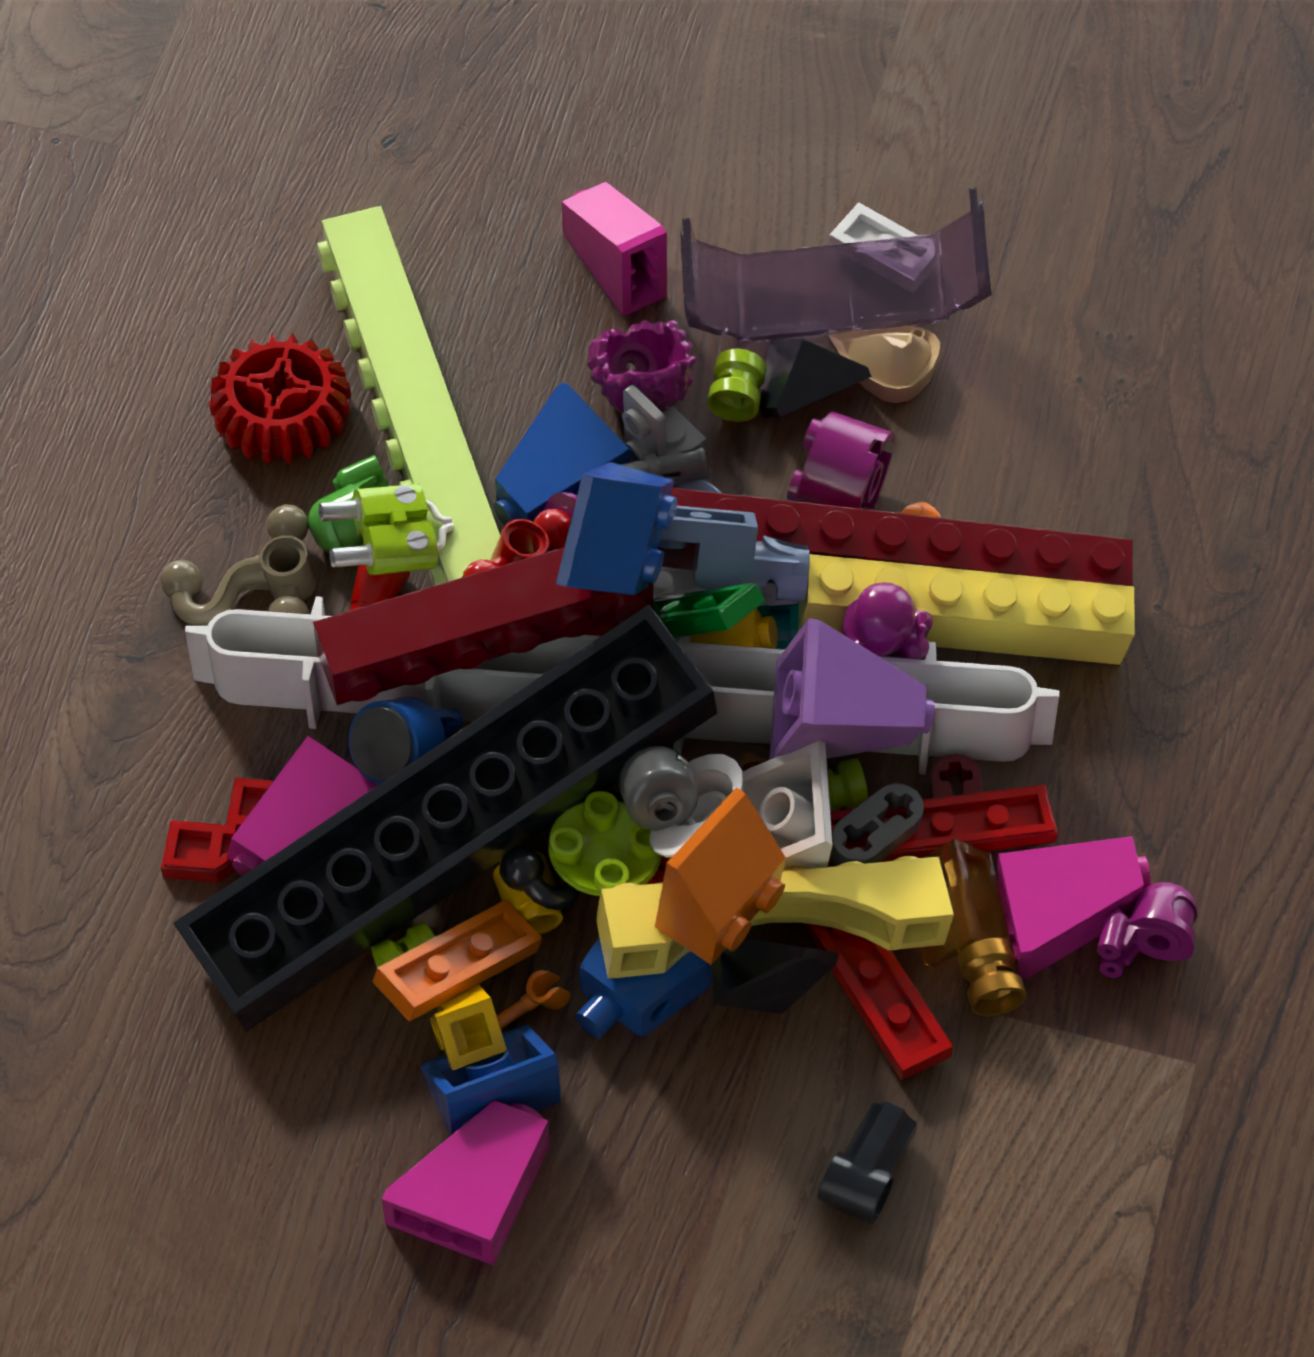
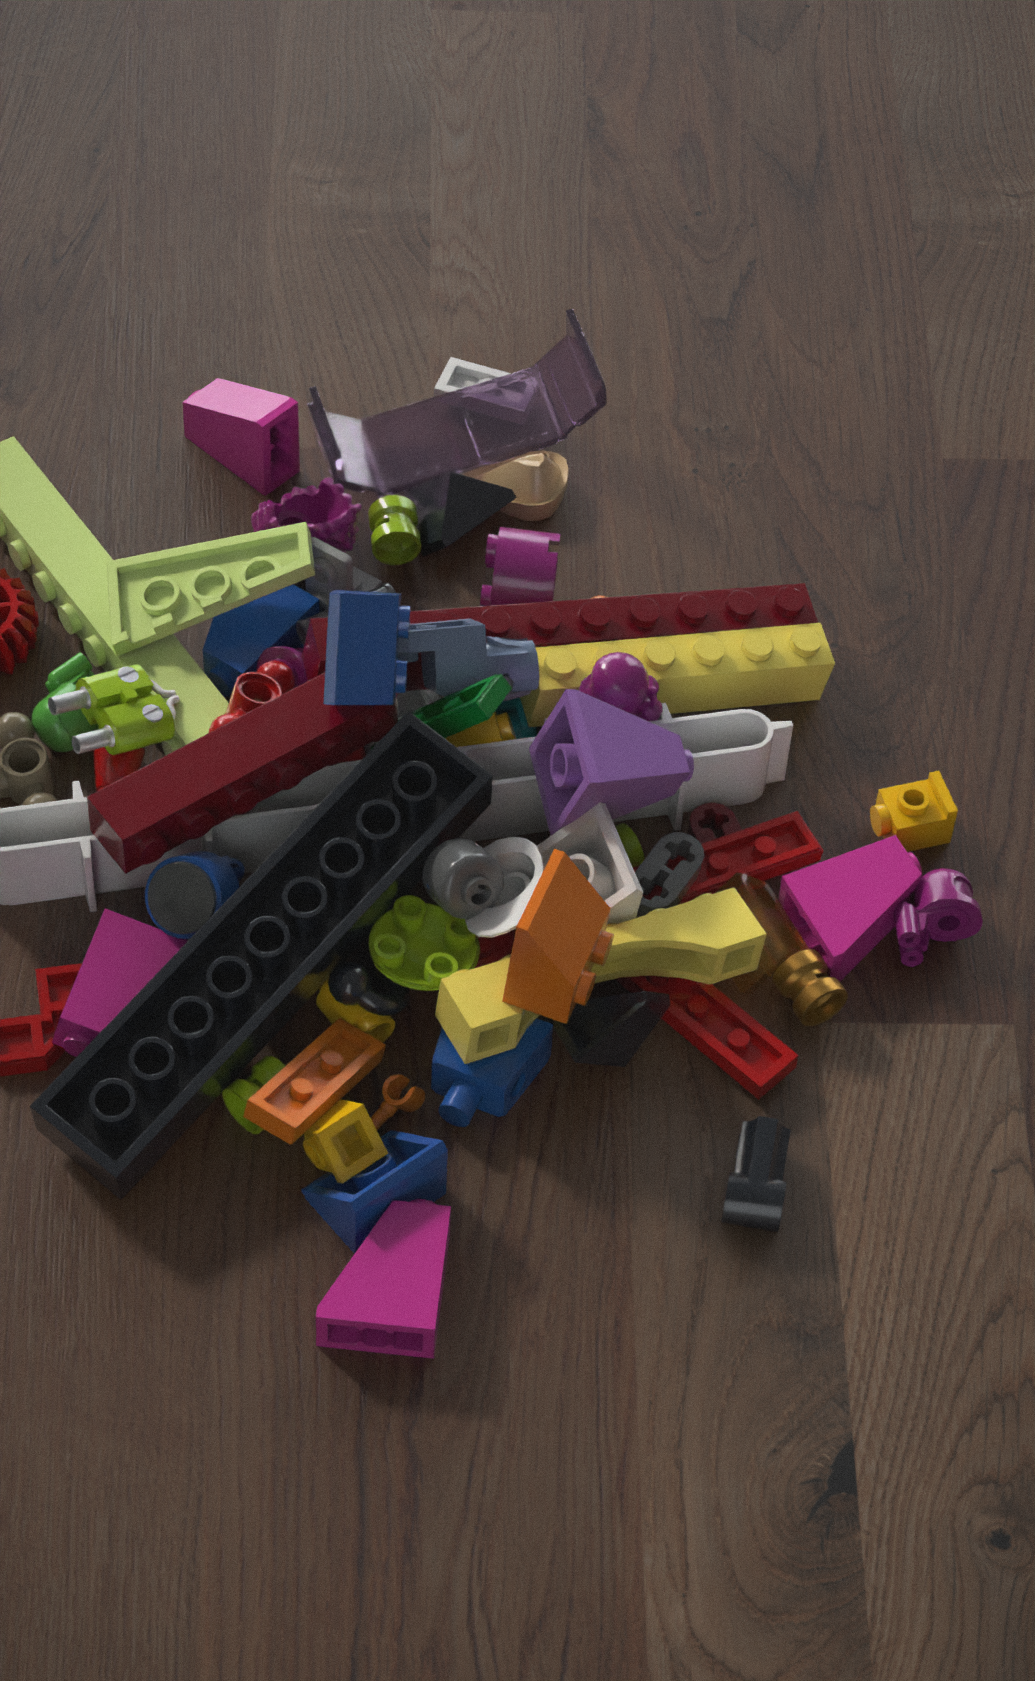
camera: 20 degrees left, 5 degrees down
(499, 409) = (191, 583): none -> yellowish green wing
(1167, 815) = (915, 812): none -> yellow brick

